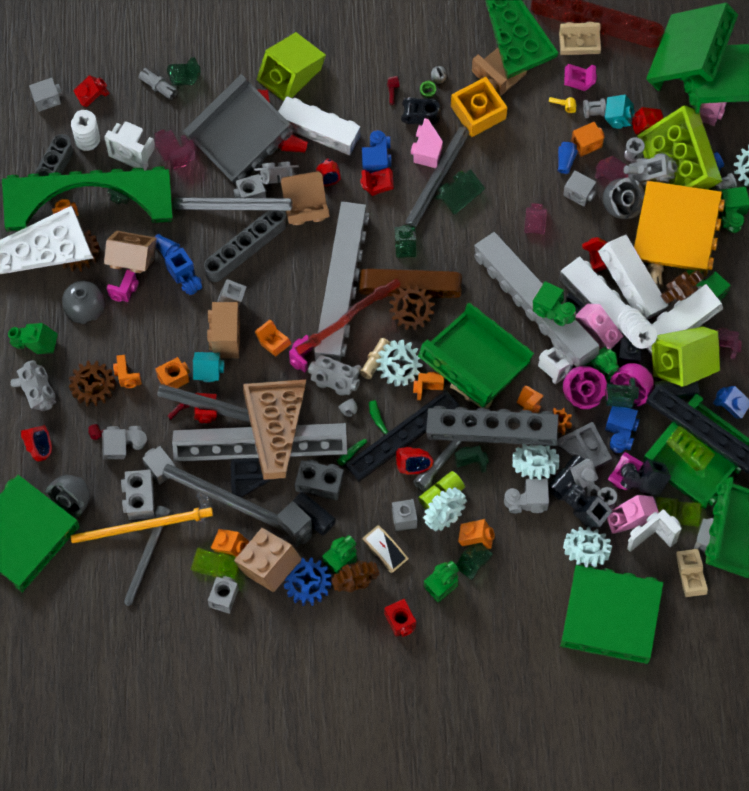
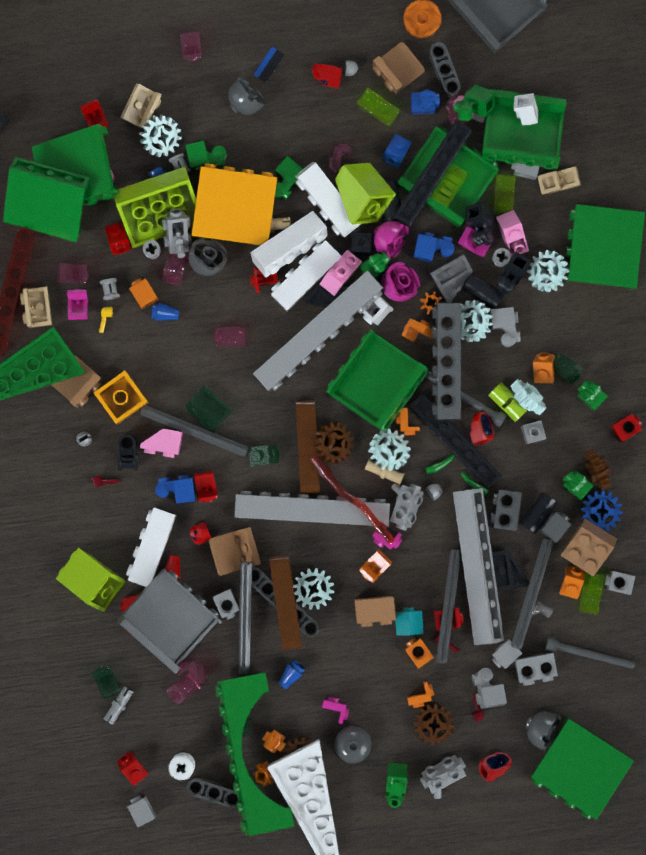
camera: 95 degrees left, 20 degrees up
(98, 223) = (274, 741): none -> orange gear
(123, 145) = (193, 722): white panel -> none
(130, 251) = (304, 706): brick -> none
(141, 525) = (553, 614): light orange bar -> none
(183, 271) = (315, 656): blue brick -> none
(232, 292) = (340, 609): light grey brick -> none
(244, 238) = (285, 602): none -> reddish brown beam
(256, 267) = (302, 582): none -> light aqua gear
(270, 172) = (204, 575): light grey hinge -> none
(274, 420) = (460, 555): medium nougat wing -> none
(385, 548) = (563, 447): slope -> none
(426, 86) = (107, 445): bright green hinge -> none
(471, 455) = (471, 382): clear green bracket -> none
(548, 304) = (332, 318): green brick -> none
(580, 188) = (197, 297): light grey brick -> none
(585, 475) = (485, 276): light grey plate -> none
(612, 74) = (72, 274): none -> clear pink bracket
(619, 111) = (114, 265): teal brick -> none
(621, 394) = (407, 248): clear green bracket -> none
(636, 328) = (345, 237): white piece -> none
(665, 526) = (524, 215): white bracket -> none
(682, 286) = (299, 199): reddish brown gear -> none

